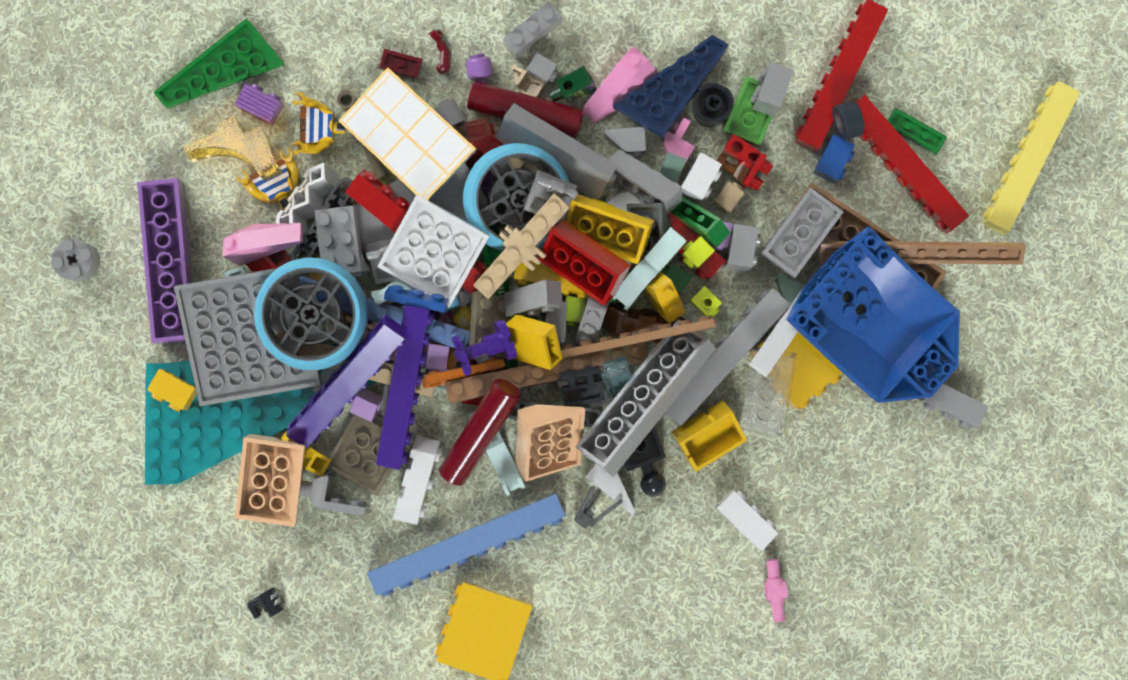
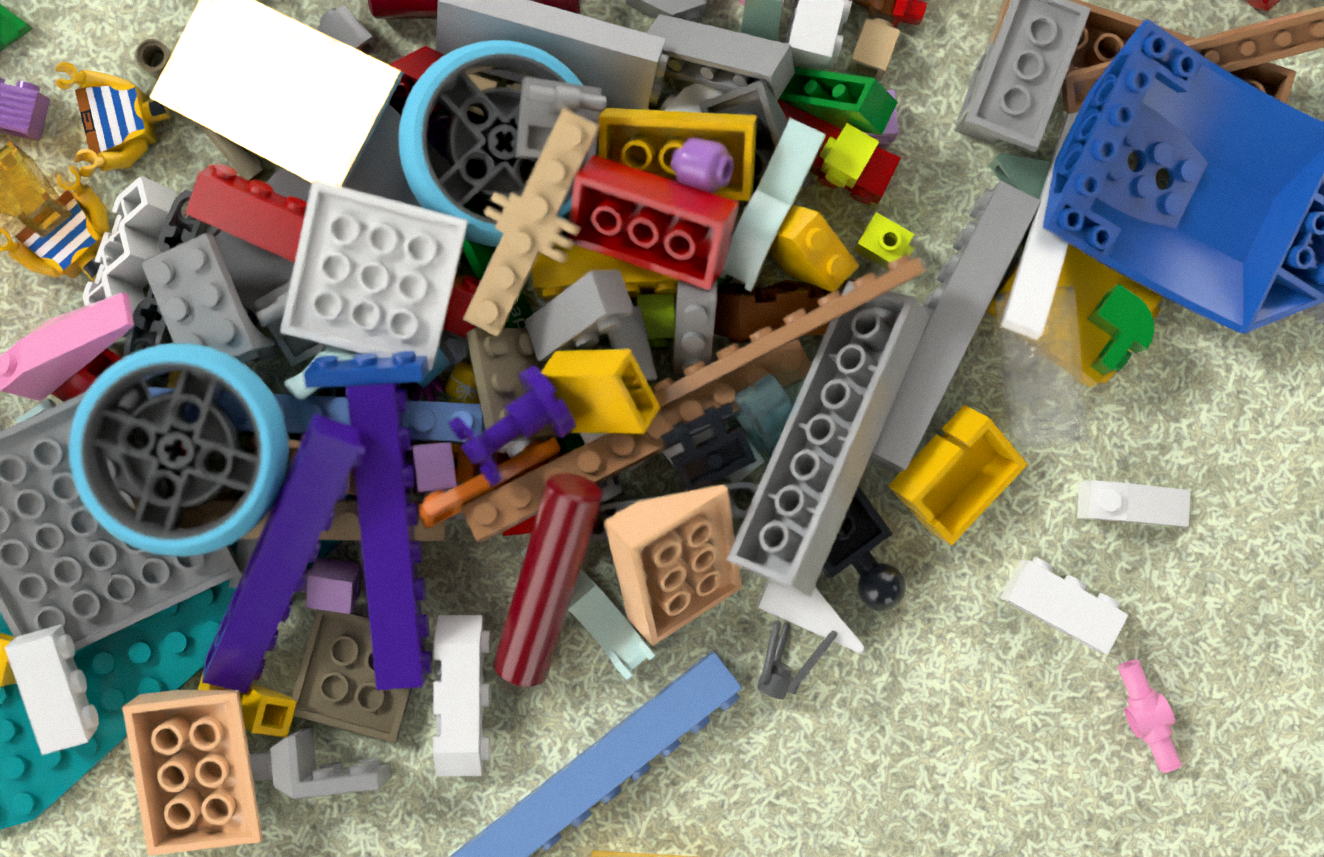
camera: 10 degrees left, 0 degrees up
(208, 418) = (52, 688): none -> white brick
(478, 129) = (401, 42): clear red brick -> none
(618, 240) = (703, 165): none -> medium lavender head
(678, 276) = (830, 207): green brick -> none
(741, 249) = (924, 128): light grey brick -> none
(799, 476) = (1133, 503): none -> white slope
(819, 380) = (1127, 322): none -> green brick

